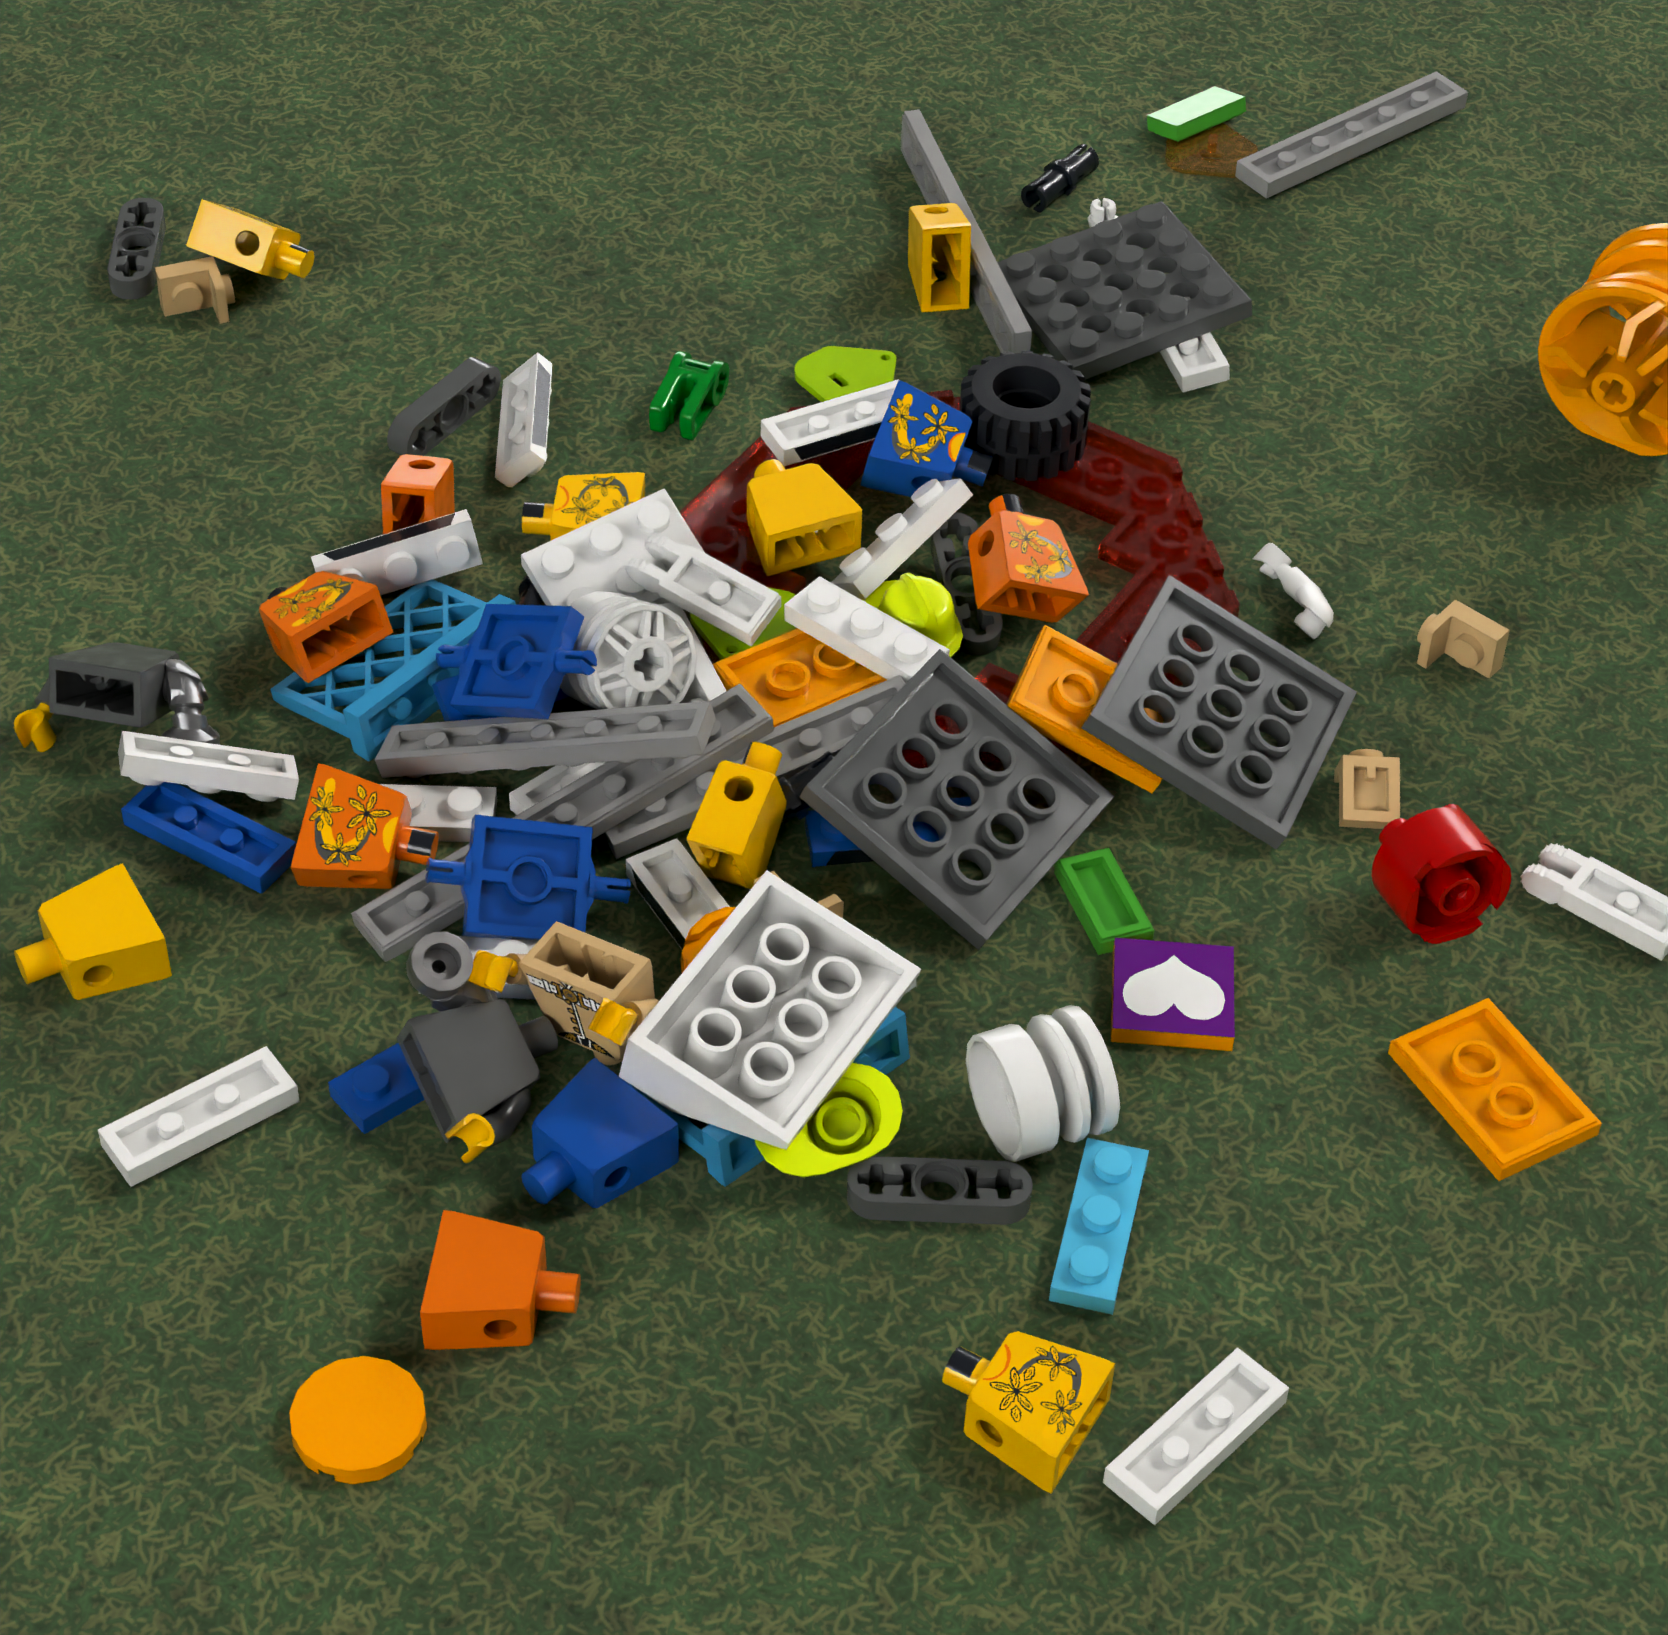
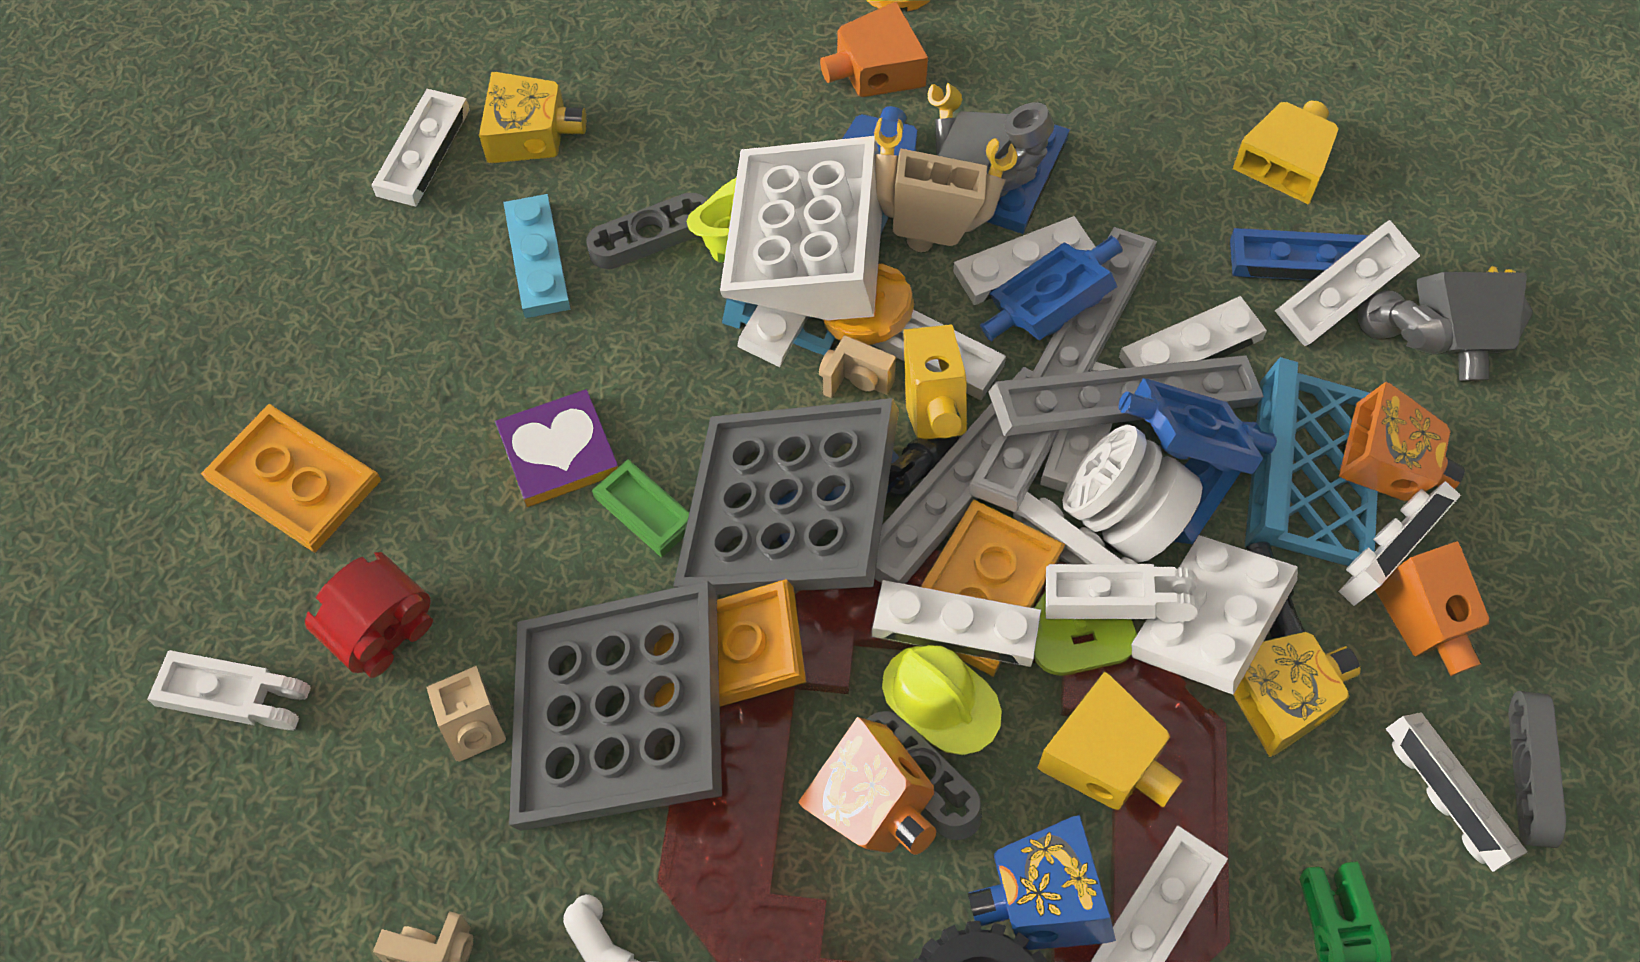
camera: 155 degrees right, 15 degrees up
(198, 1116) = (1124, 79): white plate -> none
(356, 834) = (1199, 279): orange torso -> none
(901, 536) = (998, 769): white plate -> none
(1042, 1083) = (606, 288): white wheel -> none

